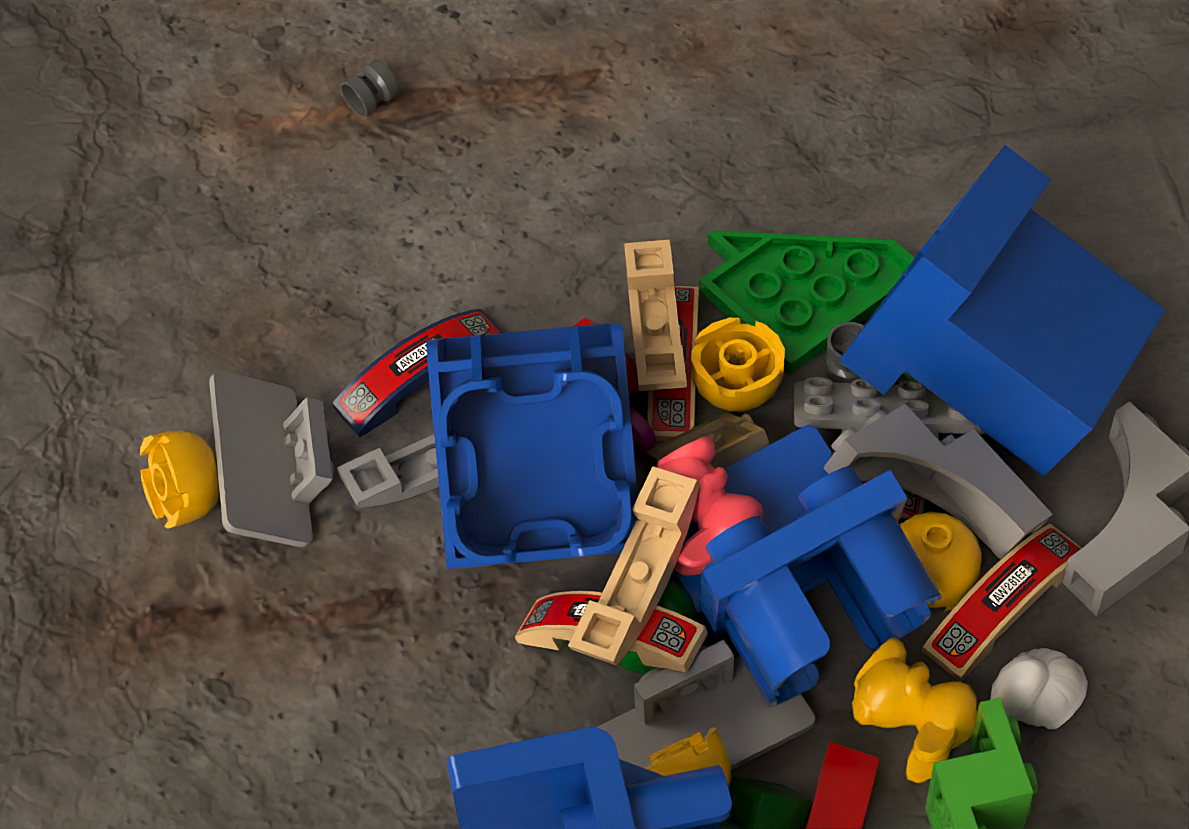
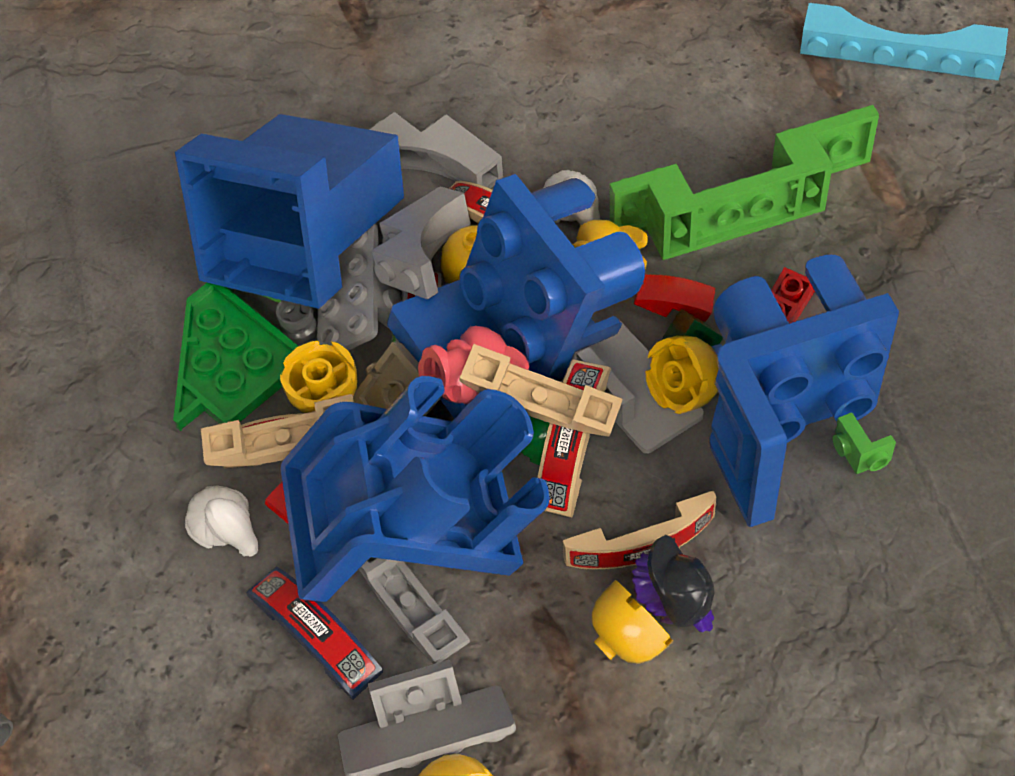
camera: 95 degrees left, 0 degrees up
(340, 672) = (626, 627): none -> yellow cylinder
(375, 723) = (674, 586): none -> black hair
(451, 661) = (594, 552): none -> tan slope
(574, 280) = (221, 518): none -> white hair

